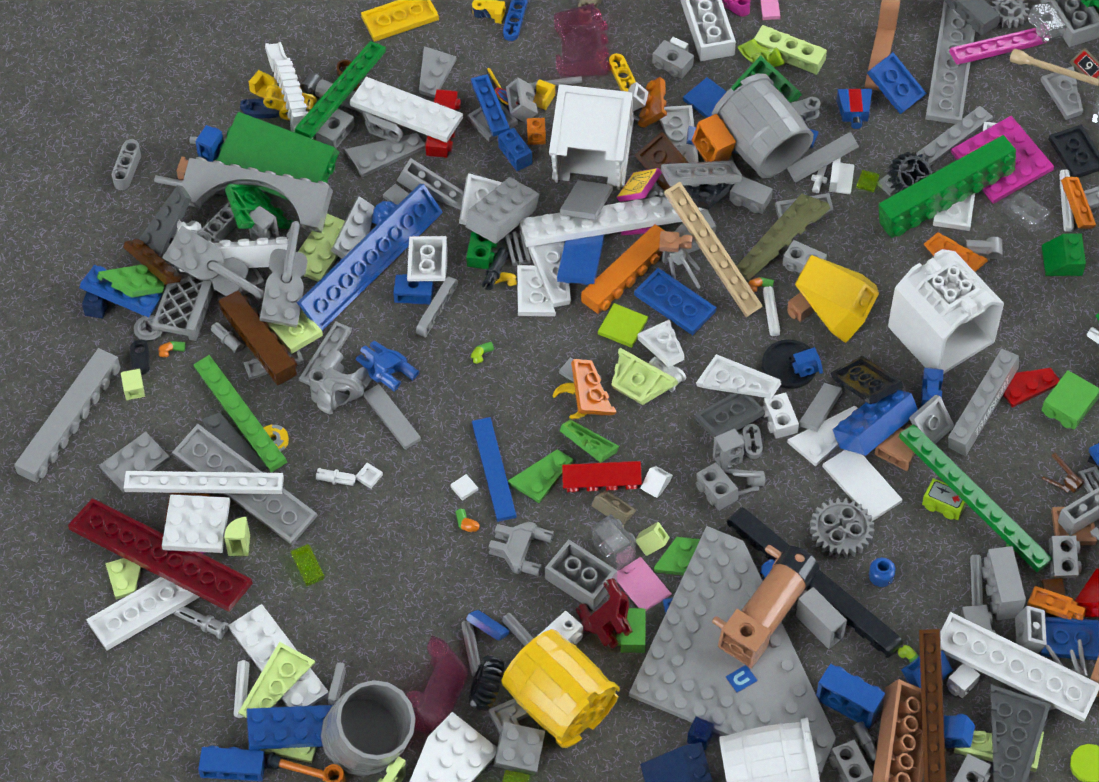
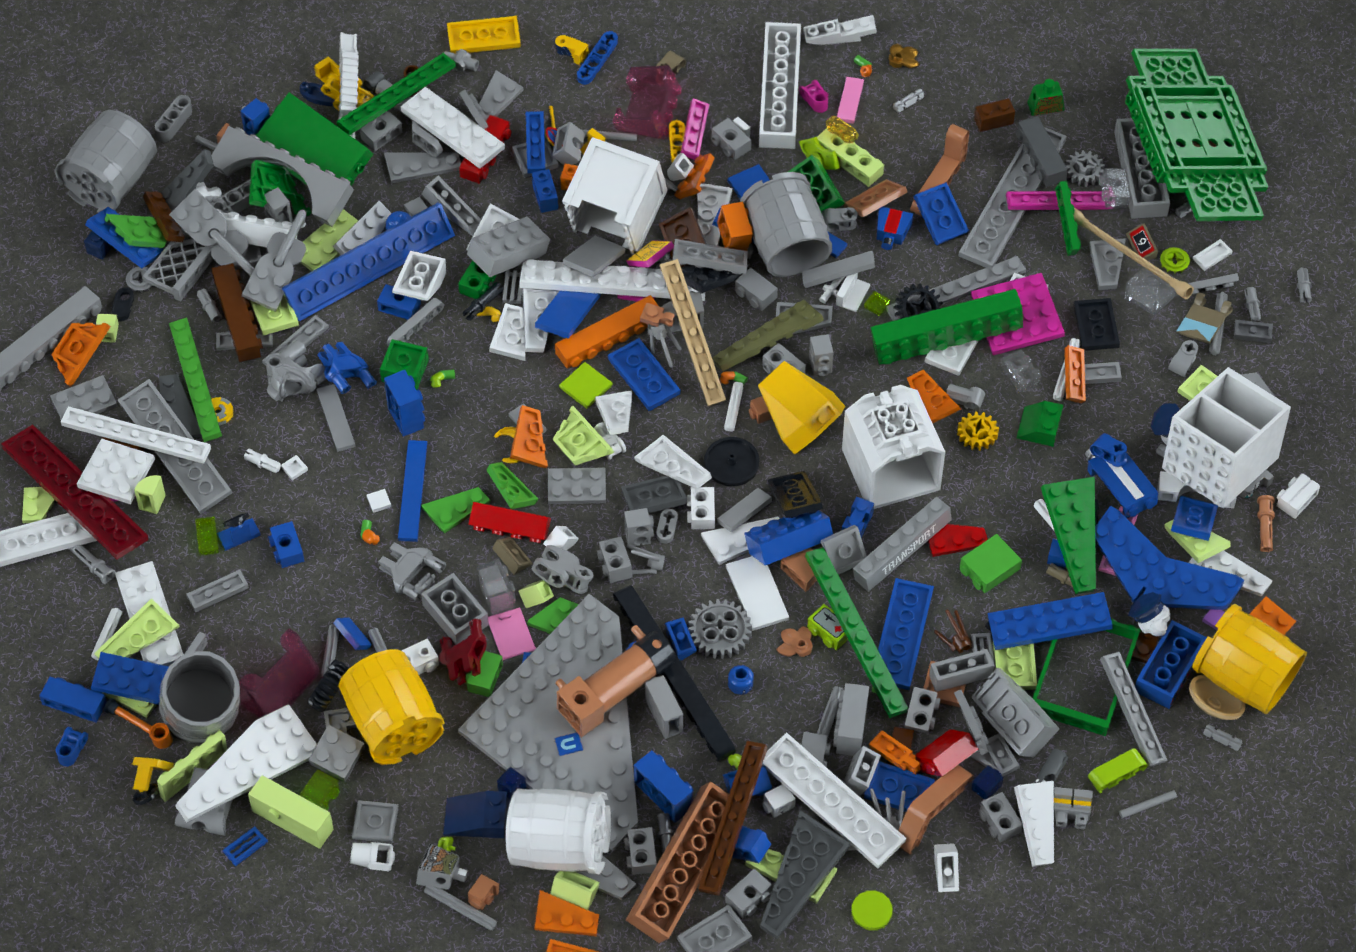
camera: 15 degrees right, 0 degrees up
(79, 220) = (106, 160): none -> light grey piece
(111, 411) = (77, 348): none -> orange wing
(171, 346) = (155, 300): arm -> none
(337, 552) = (239, 531): none -> blue piece
(337, 617) = (217, 591): none -> light grey plate
(388, 543) = (286, 535): none -> blue brick
(390, 43) = (463, 60): none -> light grey axle
(420, 87) = (475, 109): none -> light grey plate
(442, 348) = (405, 357): none -> green container
(459, 384) = (404, 402): none -> blue brick
(541, 557) = (424, 583): none -> light grey axle
(634, 57) = (694, 128): none -> dark pink tile
(651, 424) = (576, 485): none -> light grey plate
(672, 509) = (563, 570): none -> light grey piece
(777, 25) = (841, 129): none -> clear yellow plate
(805, 540) = (680, 638): none -> blue slope
(807, 362) = (746, 464): blue brick -> none
(830, 82) = (876, 197): none -> nougat tile
(838, 241) = (821, 355): none -> light grey brick
(914, 522) = (793, 641): none -> nougat plate
(1009, 278) = (986, 435): none -> yellow gear
(1015, 60) = (1066, 212): none -> green plate
(1015, 482) = (904, 629): none -> blue plate

